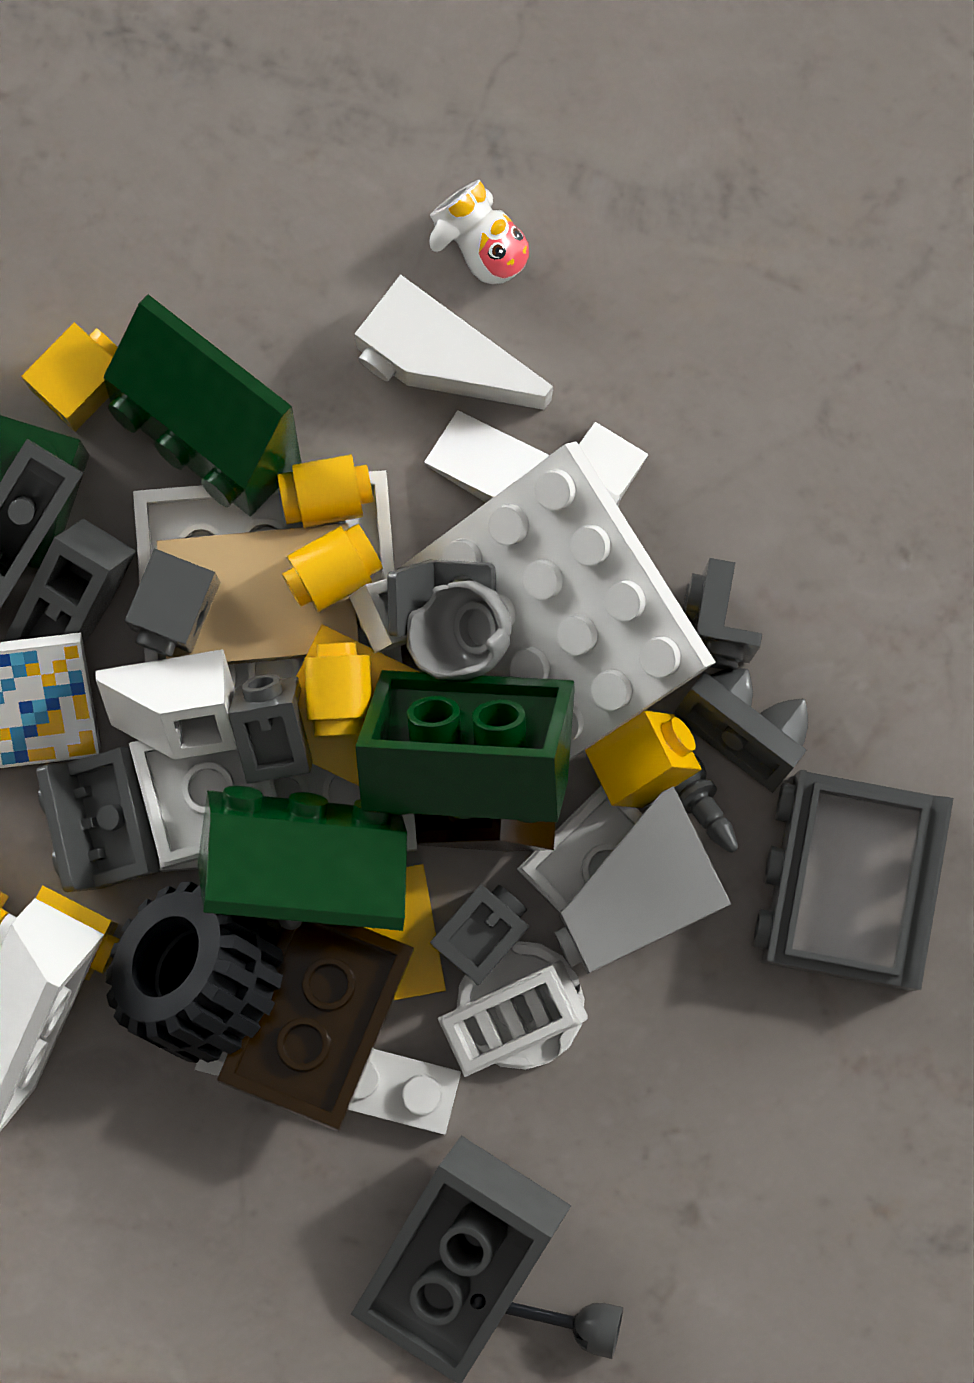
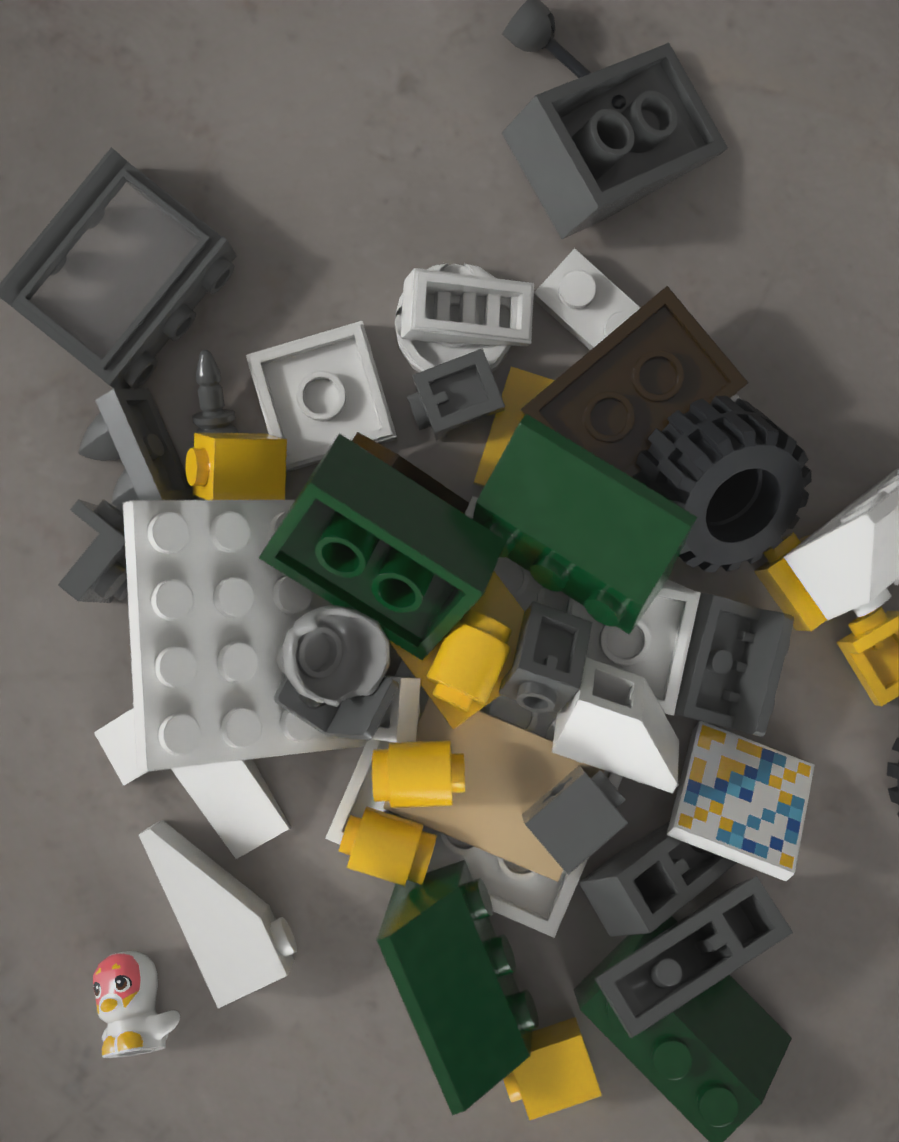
camera: 145 degrees left, 5 degrees up
(643, 889) = (299, 355): light grey slope -> none

